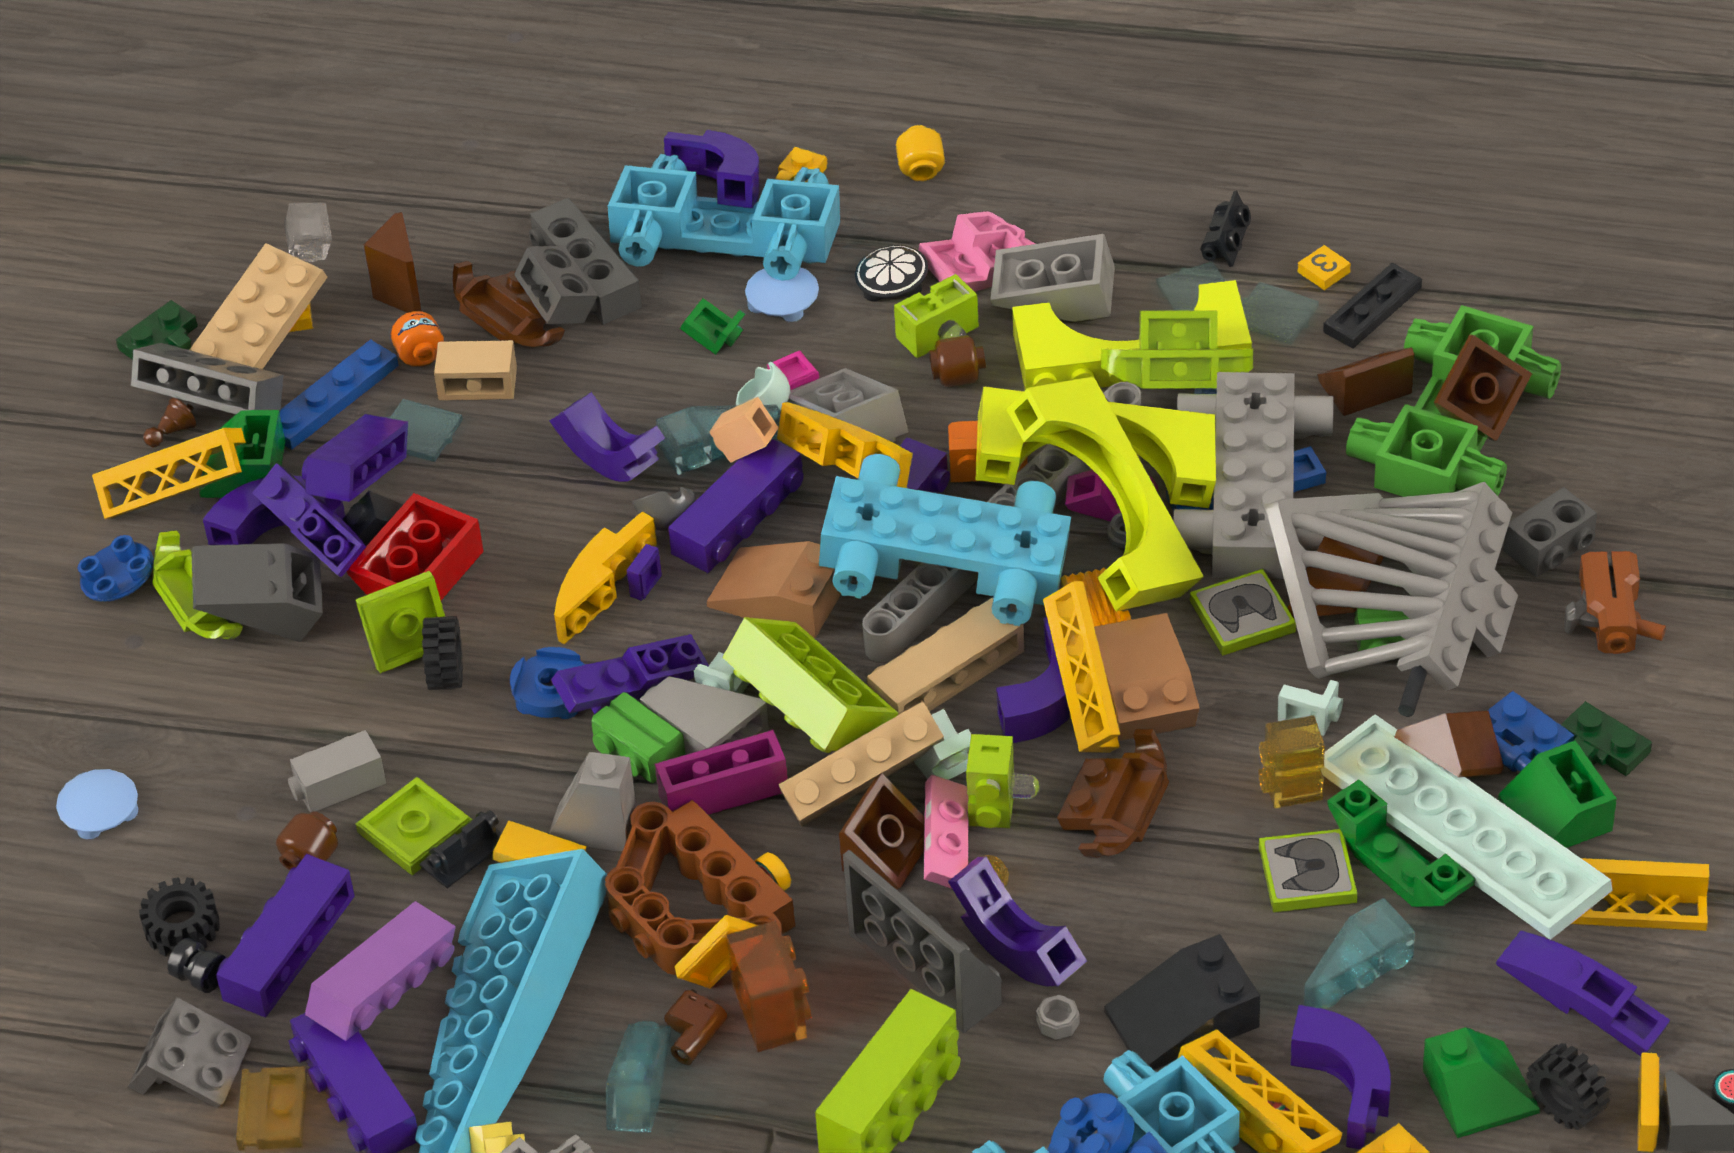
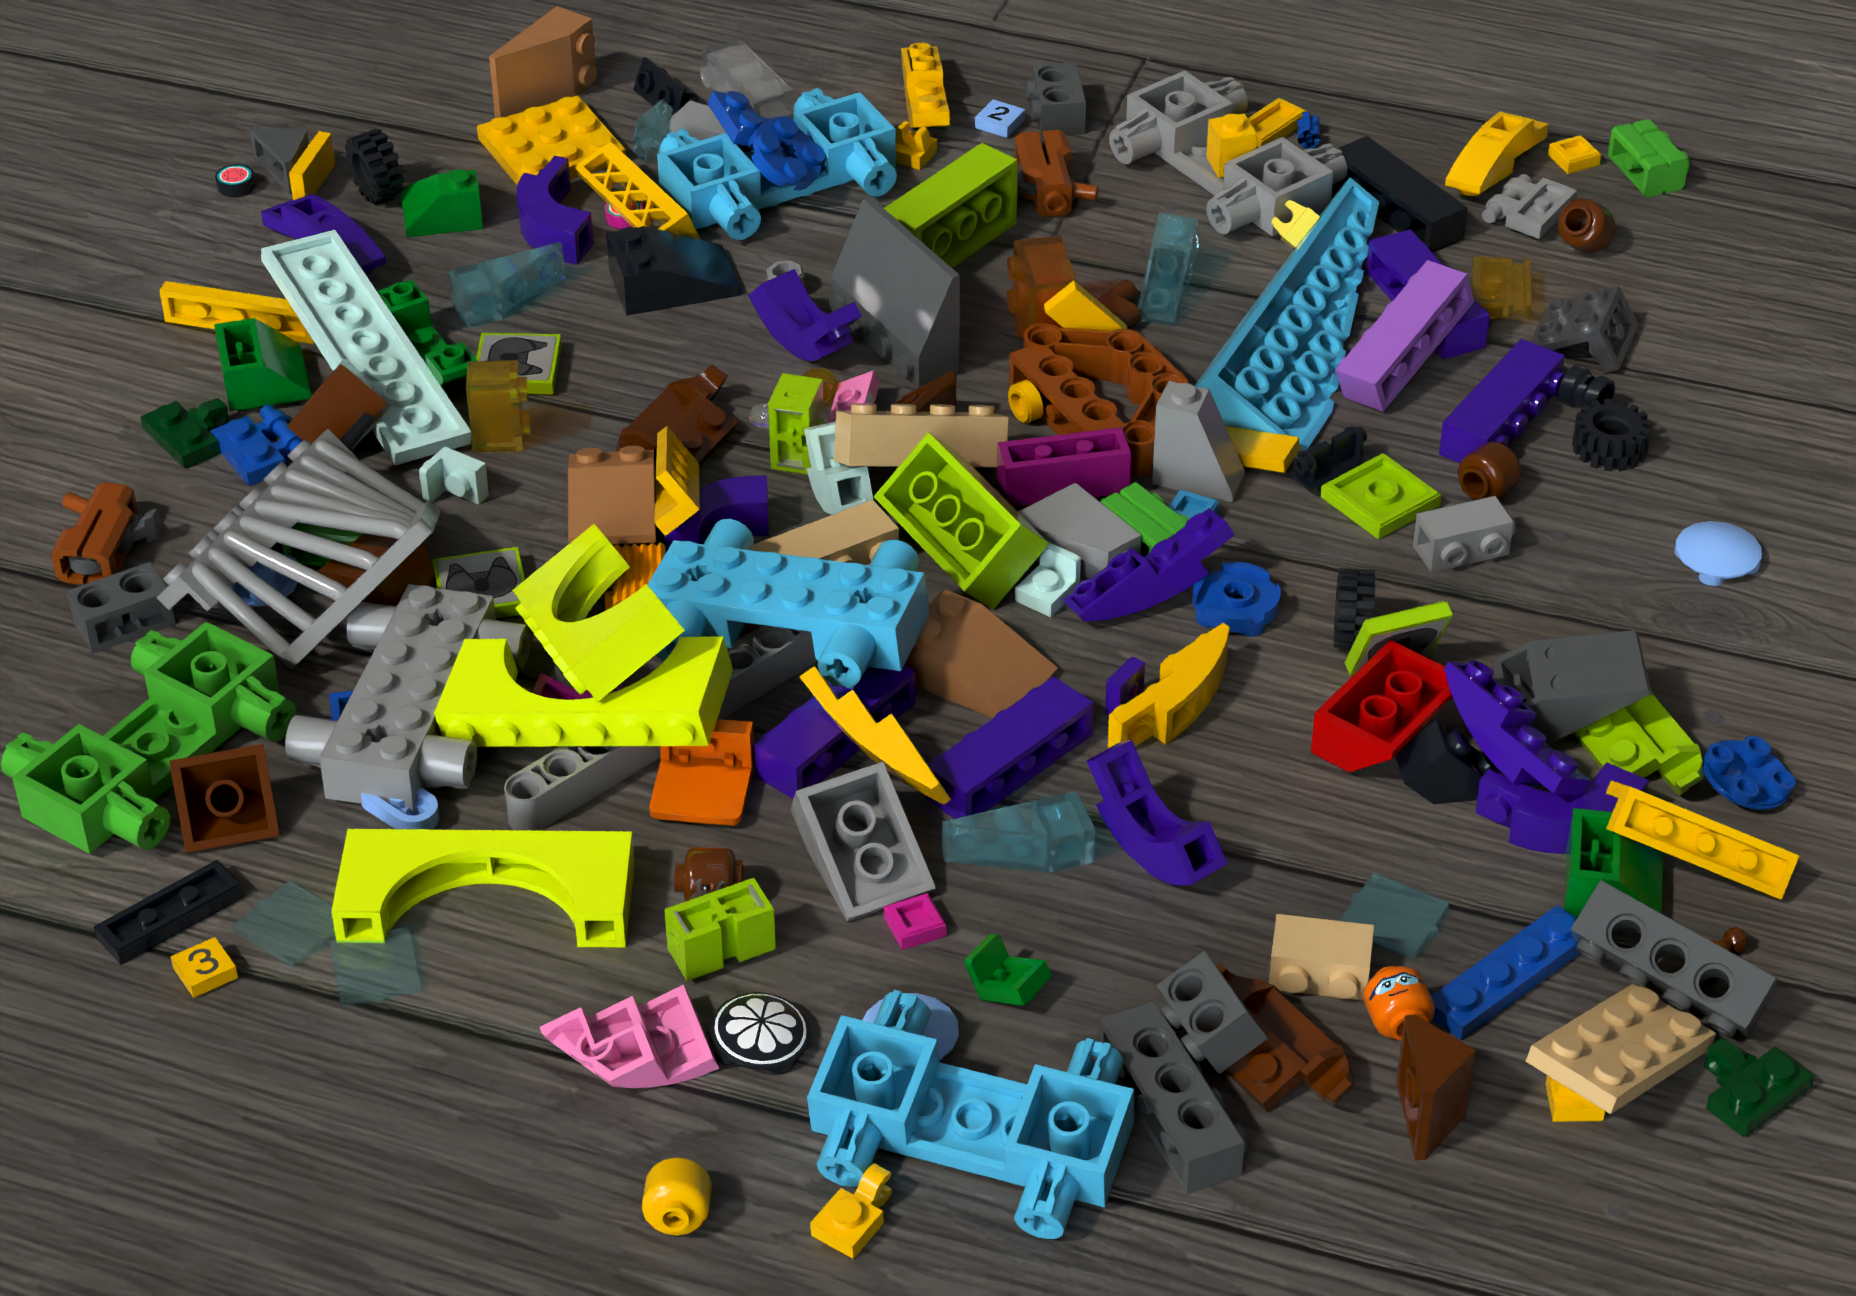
camera: 175 degrees left, 5 degrees down
(308, 231) = (1564, 1179): clear brick -> none
(355, 458) = (1465, 803): dark purple brick -> none
(665, 508) = (1087, 737): dark grey hair -> none
(722, 158) = (939, 1166): dark purple arch -> none
(743, 429) = (991, 773): light nougat brick -> none
(768, 385) = (958, 866): light aqua hair -> none
(1068, 273) = (553, 961): light grey slope -> none
(1176, 352) = (447, 808): lime plate -> none
(1227, 230) = (293, 1041): black hinge -> none
(1482, 388) = (123, 704): reddish brown slope -> none

